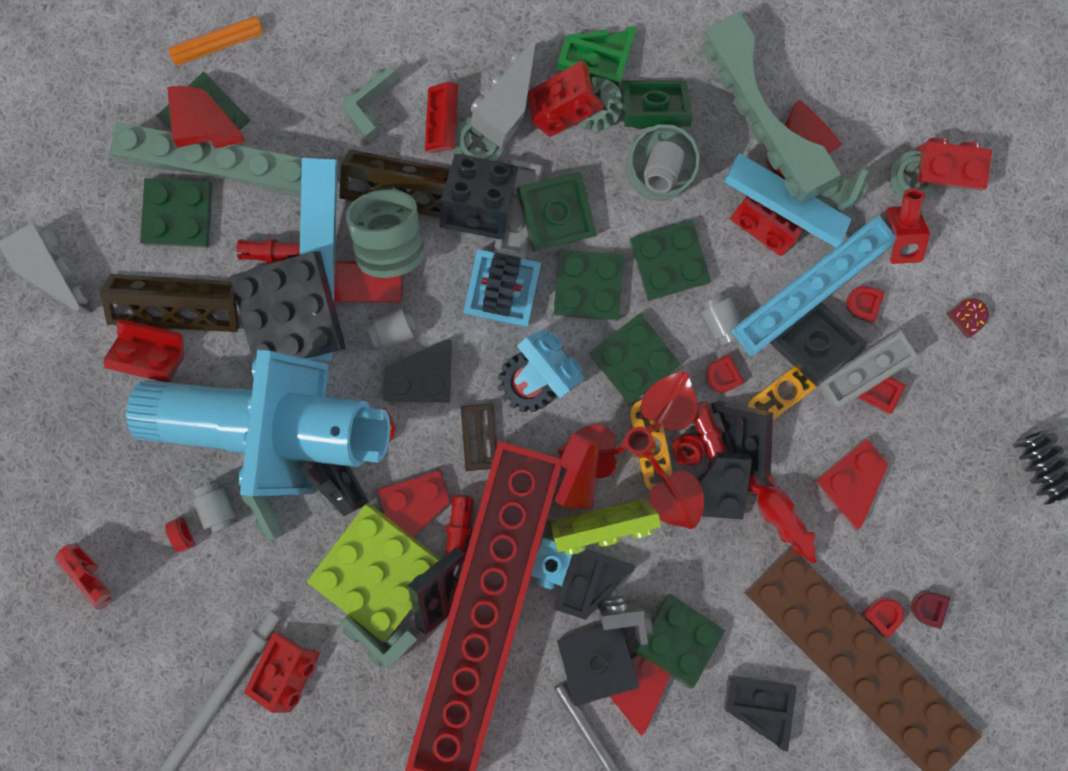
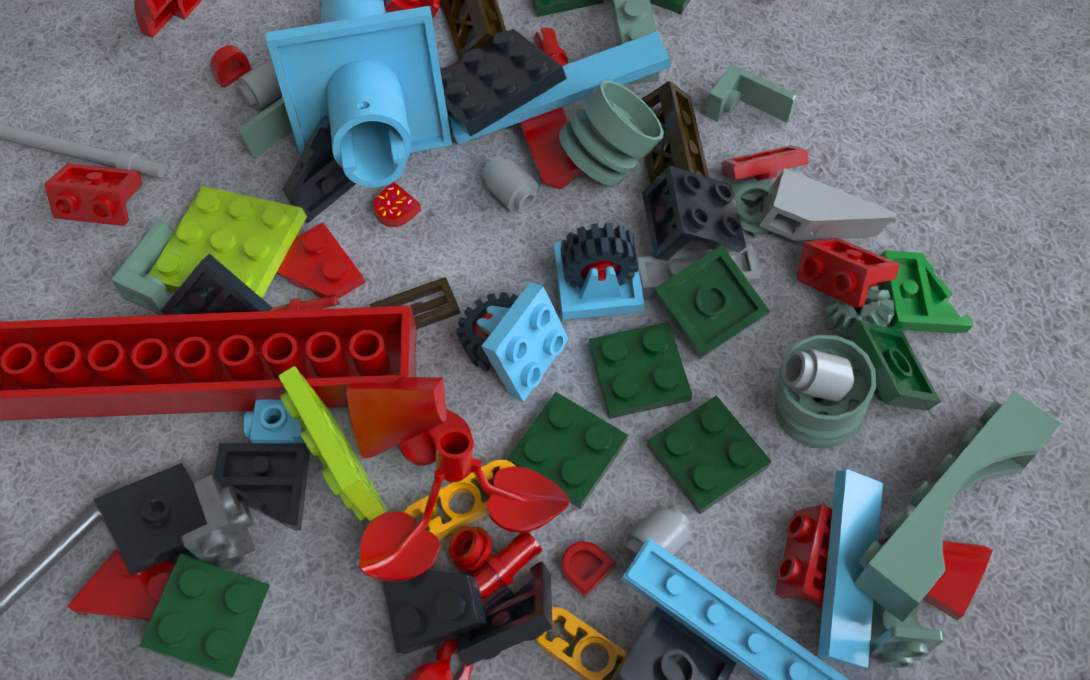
camera: 80 degrees right, 25 degrees down
(421, 376) = (468, 231): black wing -> none

